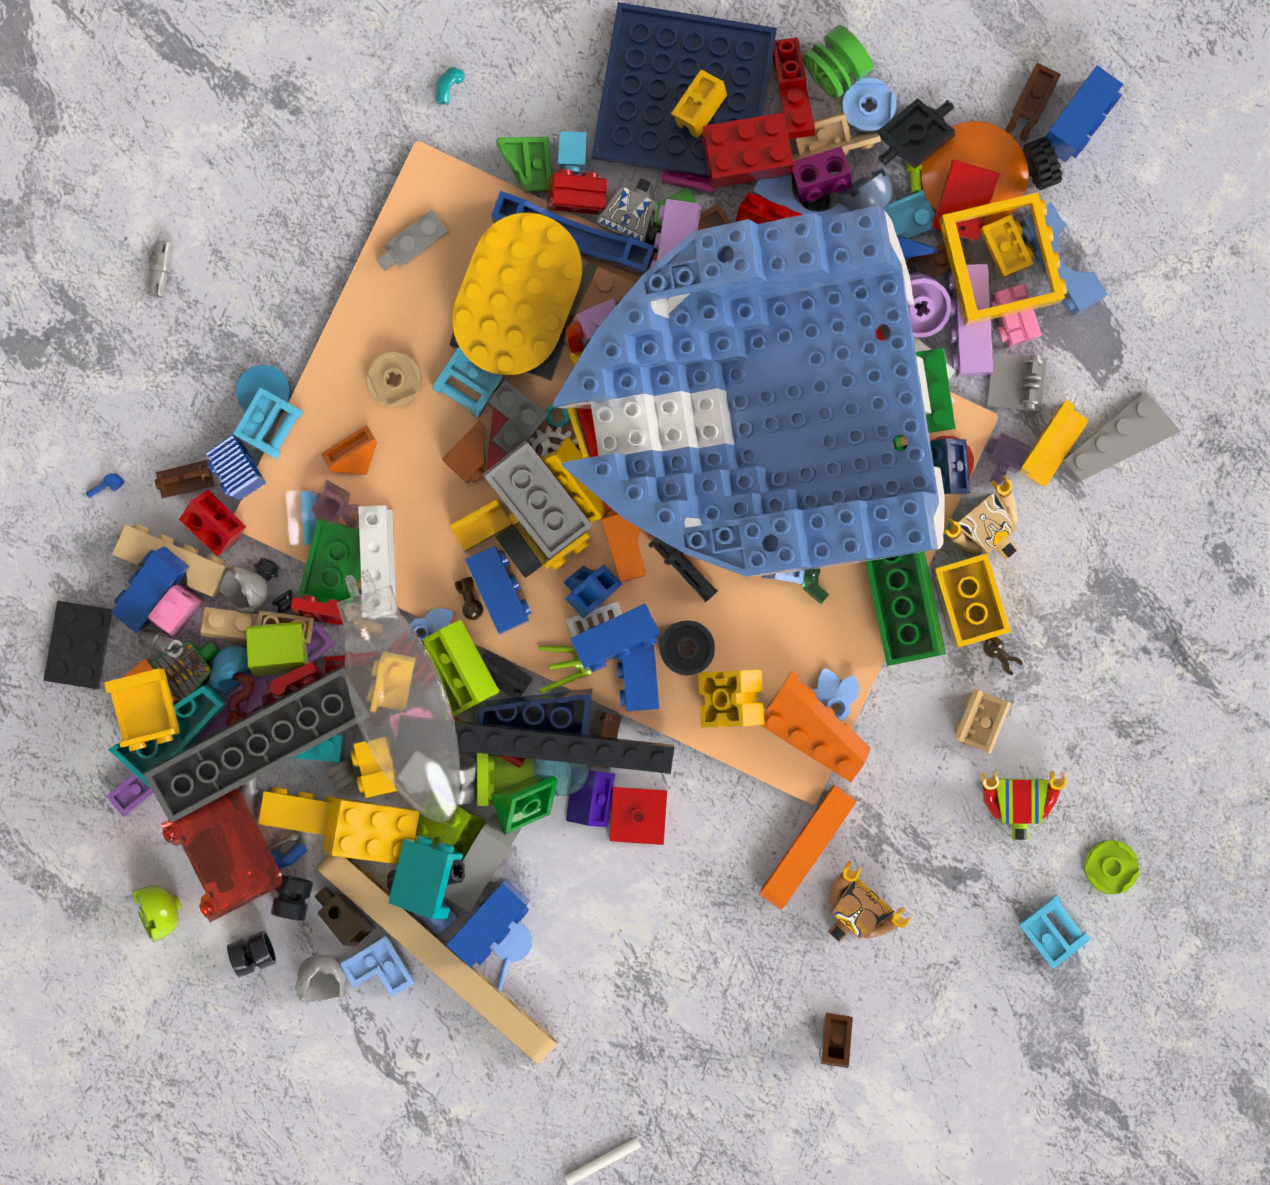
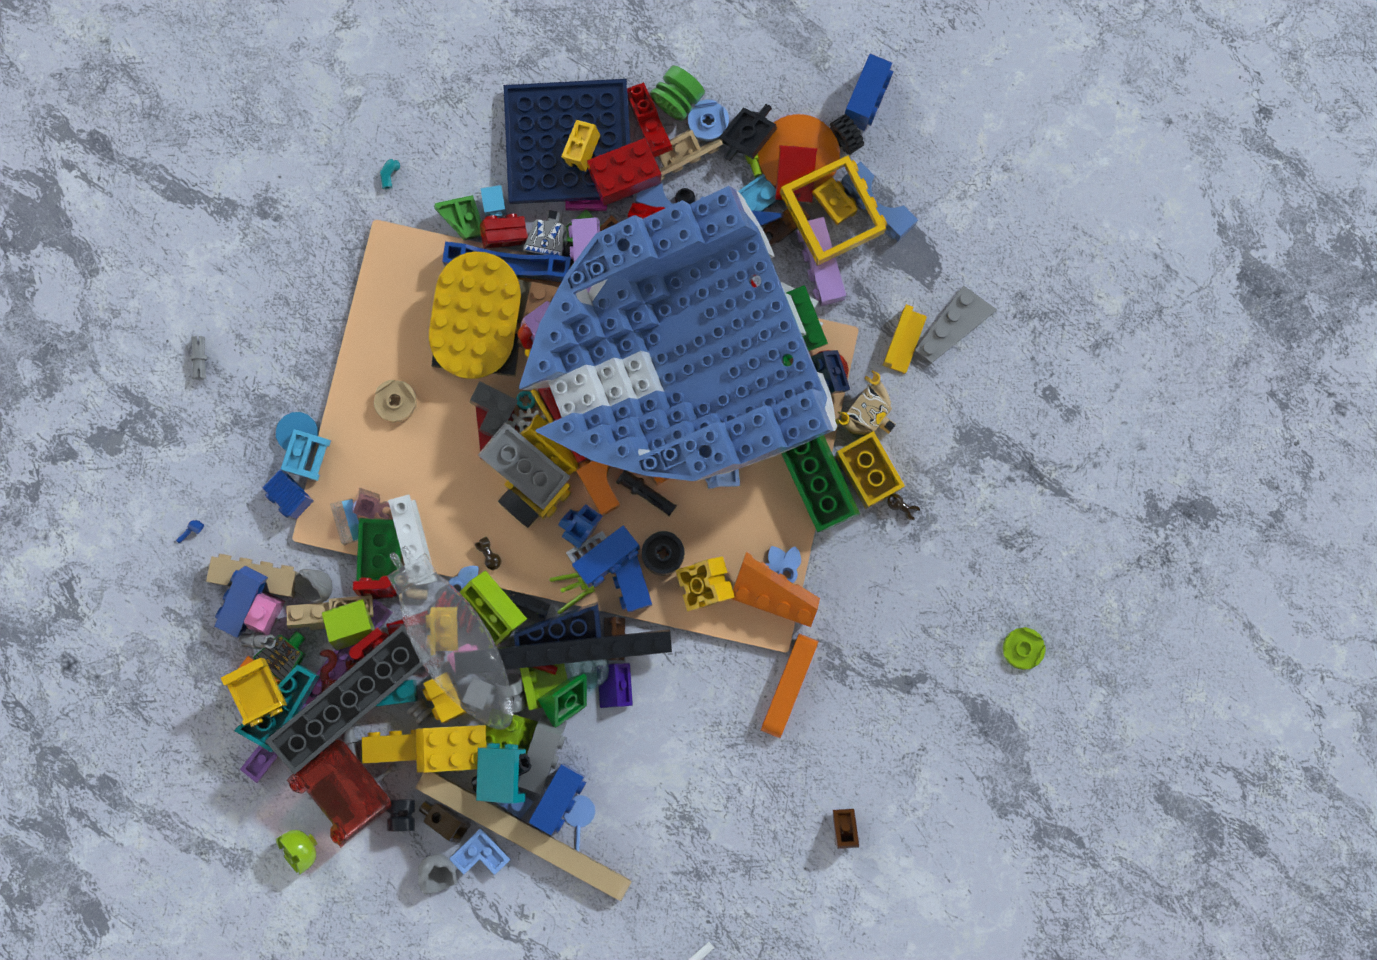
camera: 20 degrees left, 5 degrees down
(78, 645) = (194, 657): black plate -> none
(184, 479) = (250, 512): reddish brown hinge -> none
(212, 523) = (278, 540): red brick -> none
(227, 664) = (311, 647): dark azure hair -> none
(261, 954) = (385, 862): black wheel -> none
(267, 568) = (328, 566): black plate -> none
(283, 601) = (346, 588): black bush -> none
(290, 856) = (393, 783): blue arm -> none
(352, 453) = (375, 464): orange slope -> none
(413, 241) = (387, 294): light grey hinge -> none
(468, 454) = (464, 445): dark orange slope -> none
(472, 376) = (452, 384): medium azure plate -> none
(480, 525) = (484, 496): yellow panel -> none
(498, 589) = (509, 541): blue brick -> none
(638, 815) = (654, 691): red plate -> none
(811, 585) = (746, 483): clear green arm -> none
(818, 168) = (682, 175): magenta brick -> none
(860, 908) = (840, 723): torso -> none
(868, 192) = (728, 177): sand blue cylinder -> none
(935, 305) = (791, 256): lavender wheel -> none
(981, 720) = (899, 559): tan bracket -> none
(1007, 455) = (872, 355): clear purple brick -> none
(1017, 327) = (856, 259): bright pink brick -> none
(1017, 382) = (866, 300): light grey hinge -> none
(1021, 800) = (943, 612): torso -> none
(1033, 98) = (829, 89): reddish brown hinge -> none
(1046, 936) = (989, 714): medium azure plate -> none

